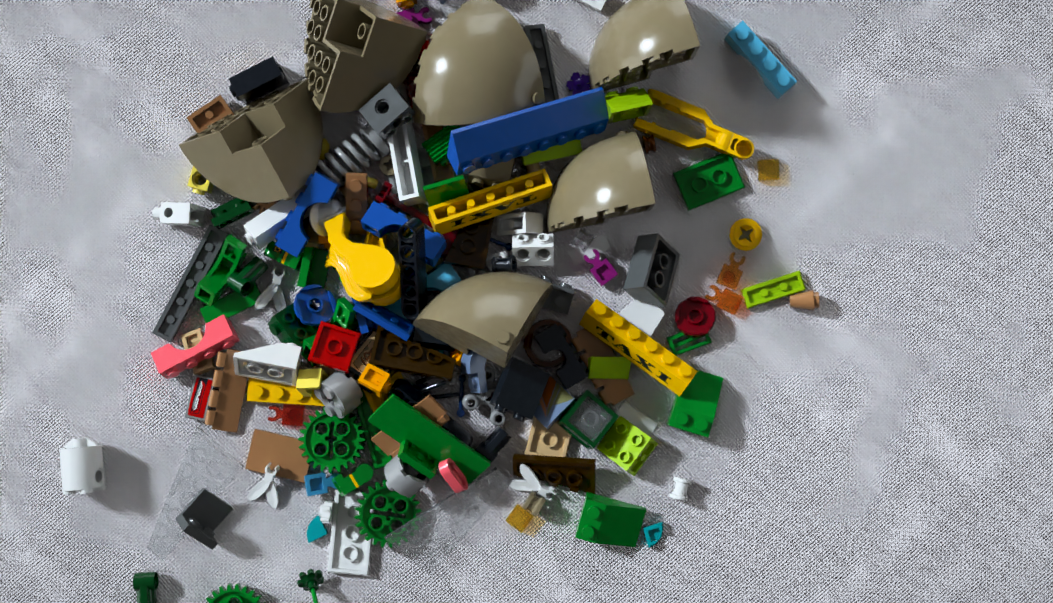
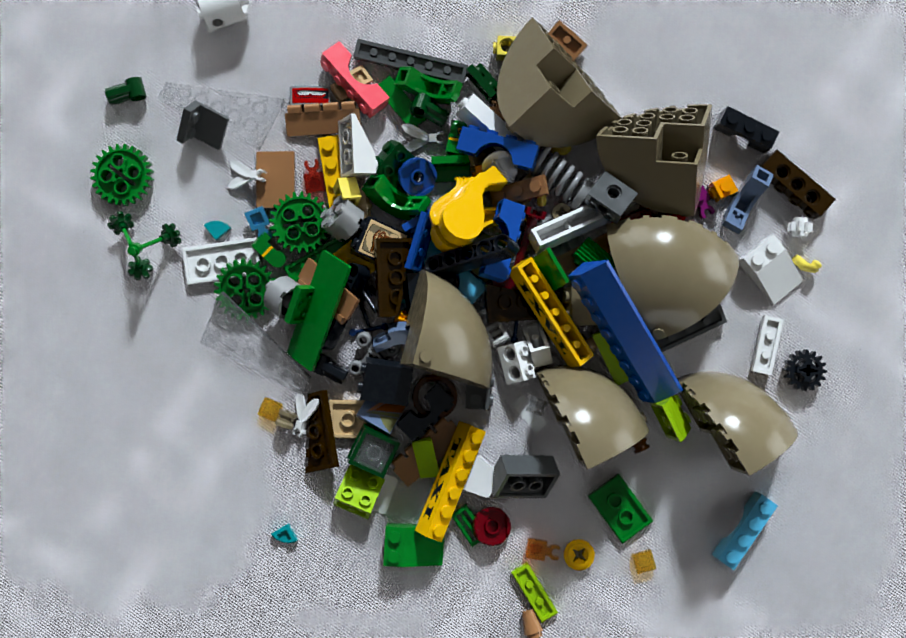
camera: 75 degrees right, 0 degrees up
(180, 214) = (470, 36): white torso -> none
(257, 80) = (608, 74): black brick -> none
(326, 511) = (234, 234): white plate -> none
(334, 347) = (383, 203): red tile -> none
(375, 379) = (361, 248): light orange bracket -> none
(453, 475) = (292, 340): coral beam -> none
(504, 264) = (496, 339): black bush -> none
(578, 83) = (679, 366): dark purple plant -> none
(602, 270) = (513, 430): magenta plate -> none
(609, 521) = (286, 492): green slope -> none
(680, 488) = (331, 550): white bush -> none
(715, 138) = (662, 506): yellow piece -> none
(727, 300) = (514, 551): clear orange plate -> none

